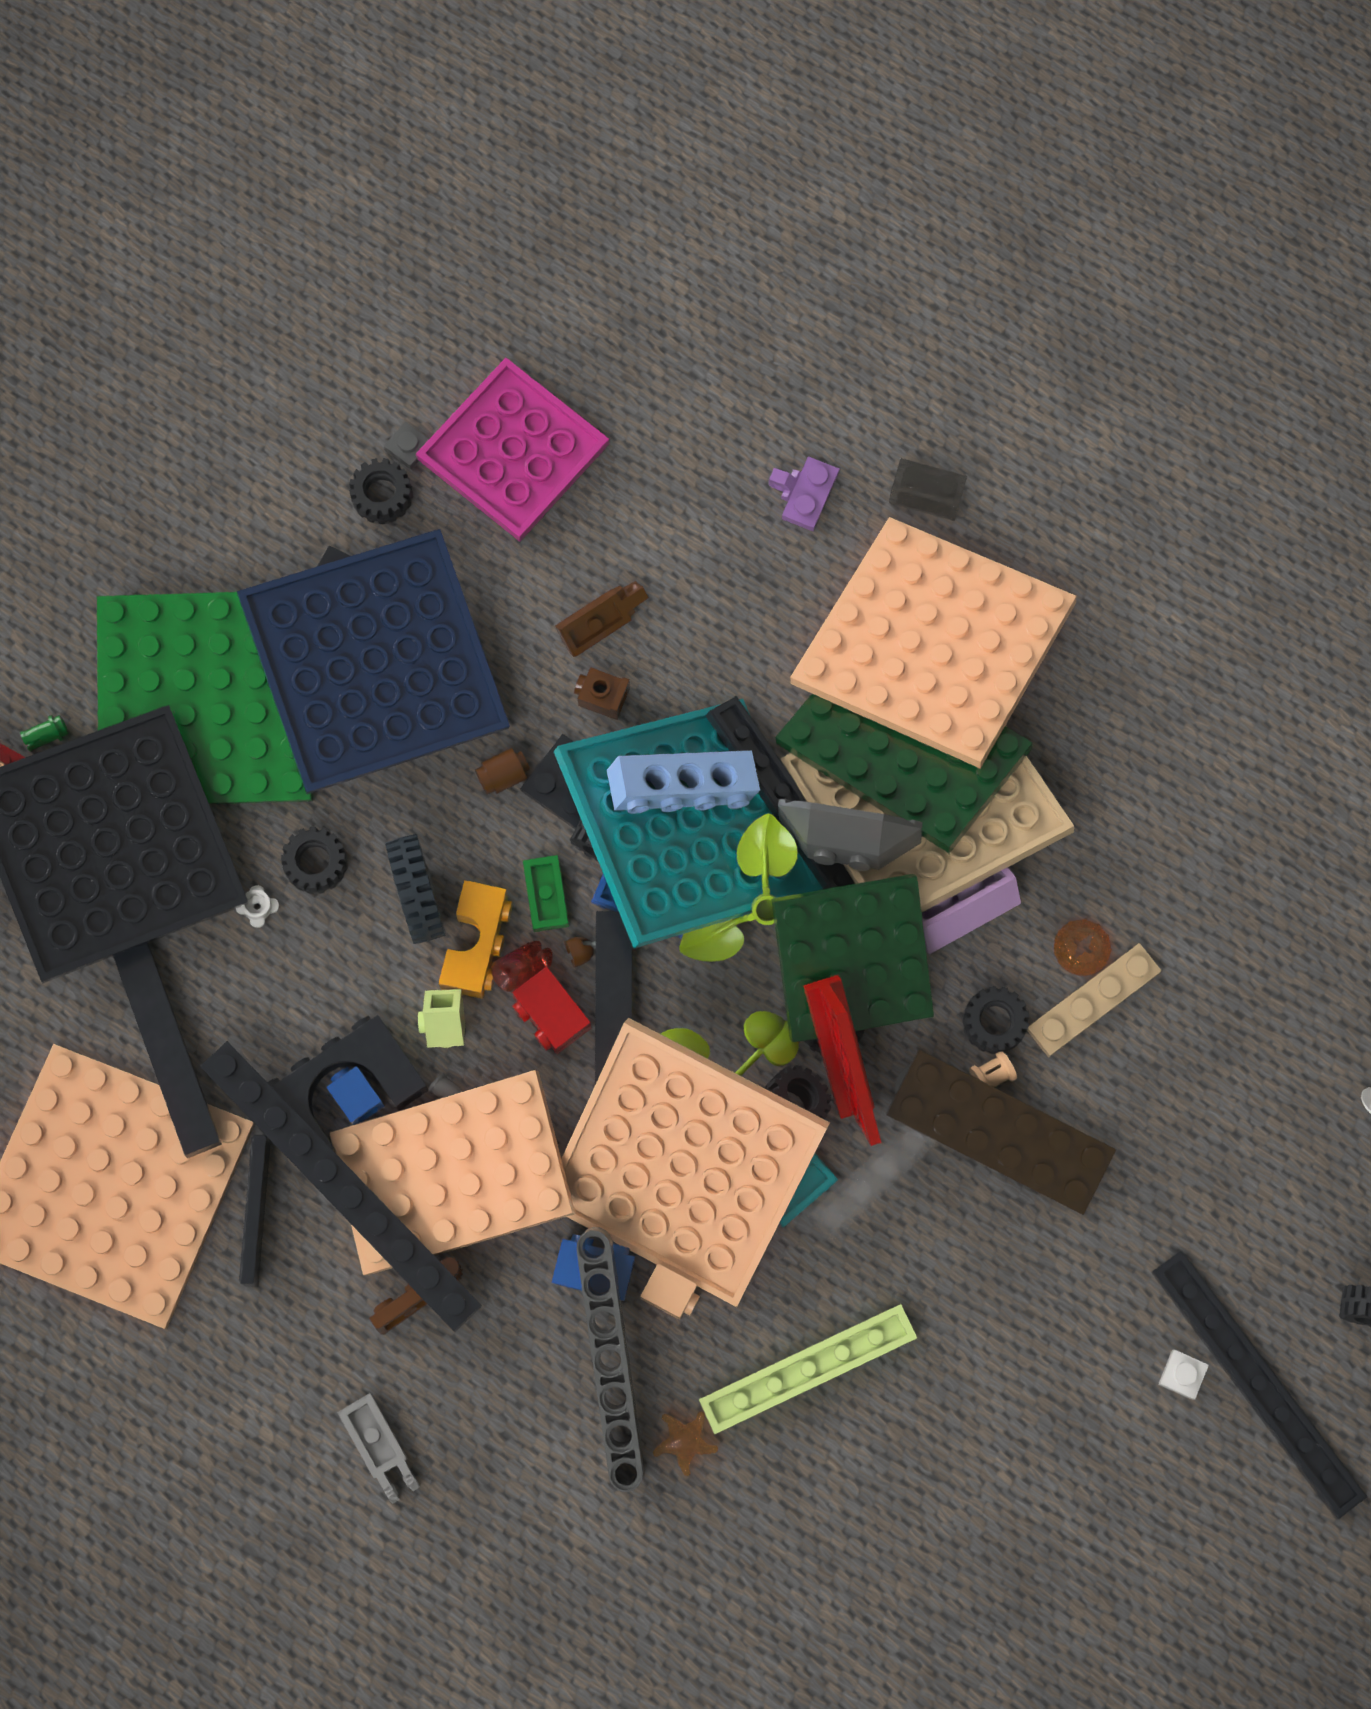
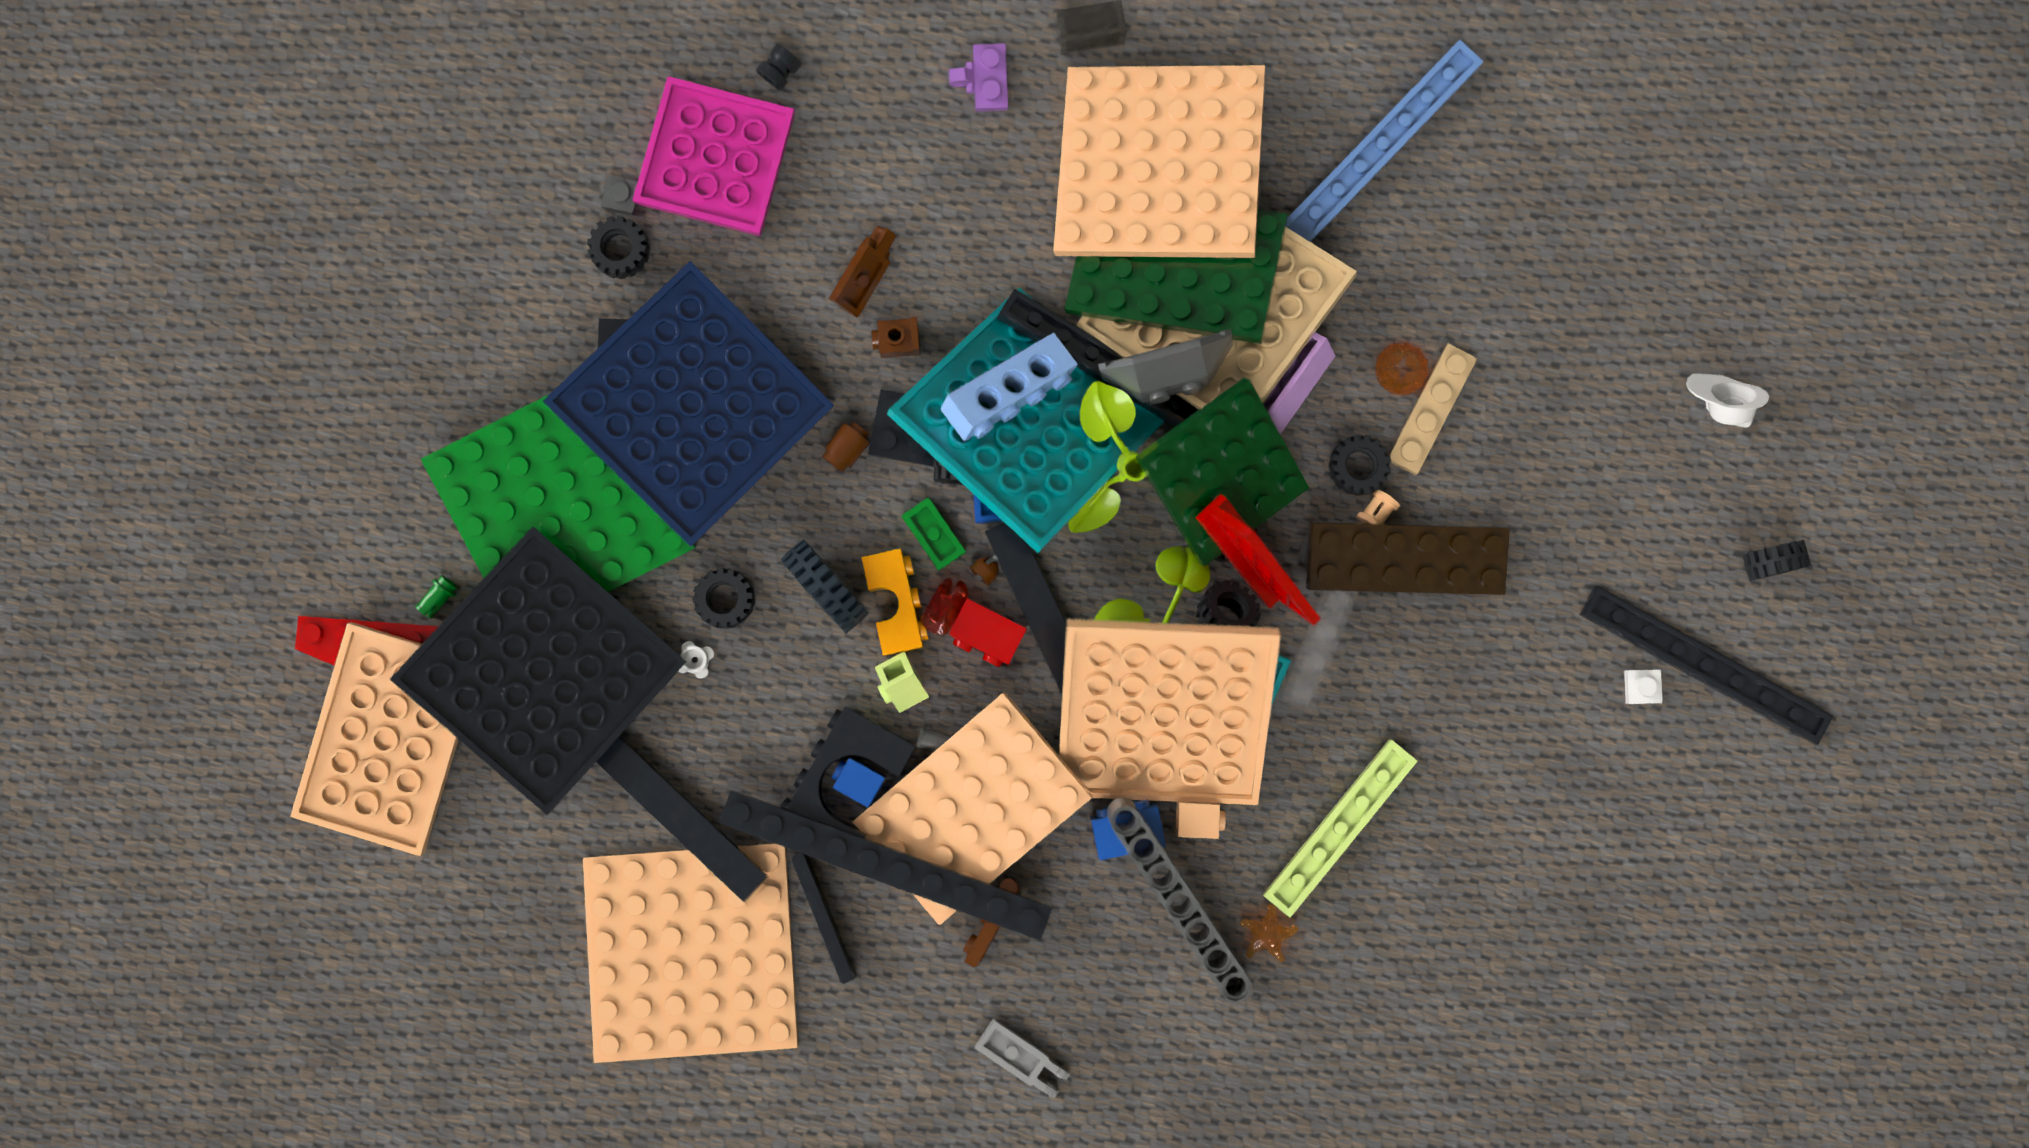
camera: 25 degrees left, 10 degrees up
(613, 395) = (778, 67): none -> black wheel
(1163, 723) = (1384, 141): none -> medium blue plate

